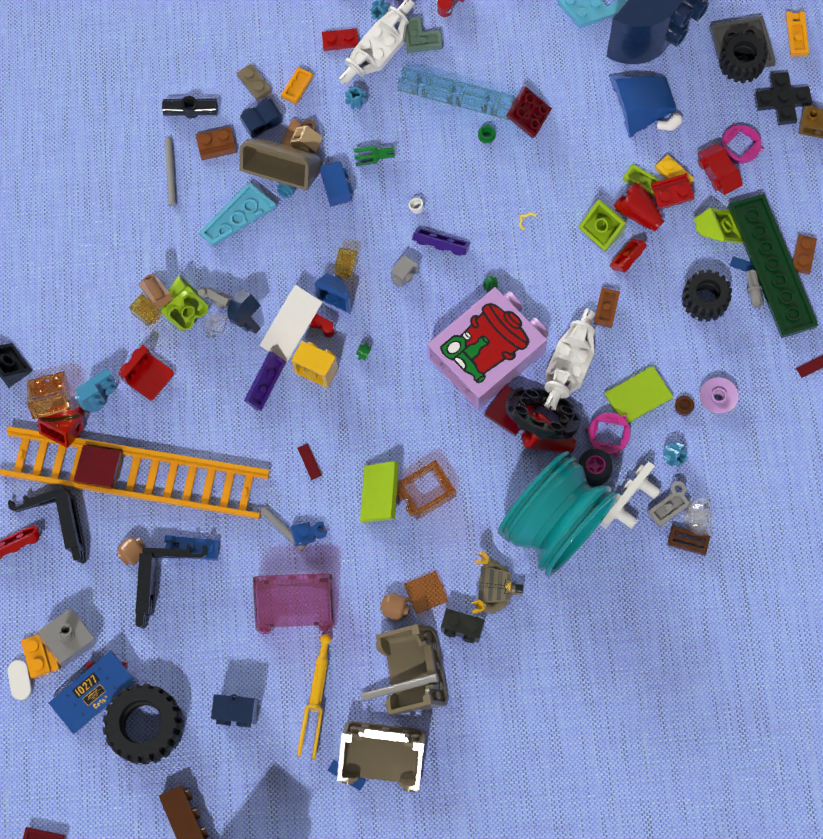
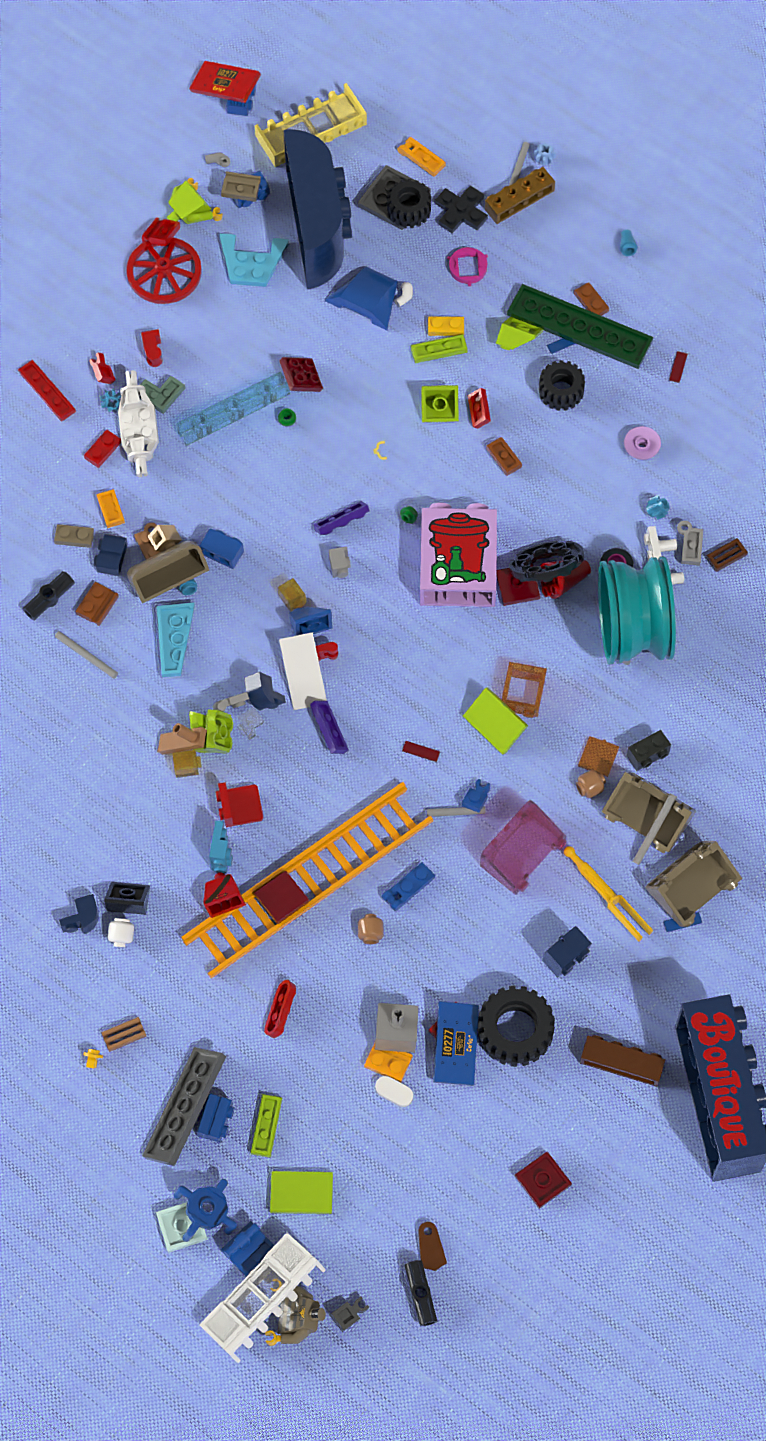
camera: 50 degrees left, 5 degrees down
(48, 397) = (199, 889): clear orange window -> none
(68, 518) = (297, 949): black hinge -> none
(147, 578) = (405, 932): black hinge -> none
(315, 364) = (354, 680): yellow brick -> none
(355, 97) = (160, 474): dark azure gear -> none
(363, 351) = (374, 642): green plate -> none
(376, 154) = (223, 505): green arm -> none
(414, 205) = (291, 510): white hinge -> none
(494, 586) = (639, 704): torso -> none
(570, 360) = (521, 512): white plate -> none
(611, 418) = (591, 524): dark pink piece -> none
(639, 207) = (450, 368): red cone -> none
(639, 395) = (590, 494): lime tile -> none
(672, 191) = (461, 338): red plate -> none
(684, 405) = (626, 472): reddish brown tile -> none
(699, 517) = (719, 531): clear cylinder -> none
(719, 169) = (474, 294): red brick -> none
(754, 289) = (586, 352): light grey axle -> none

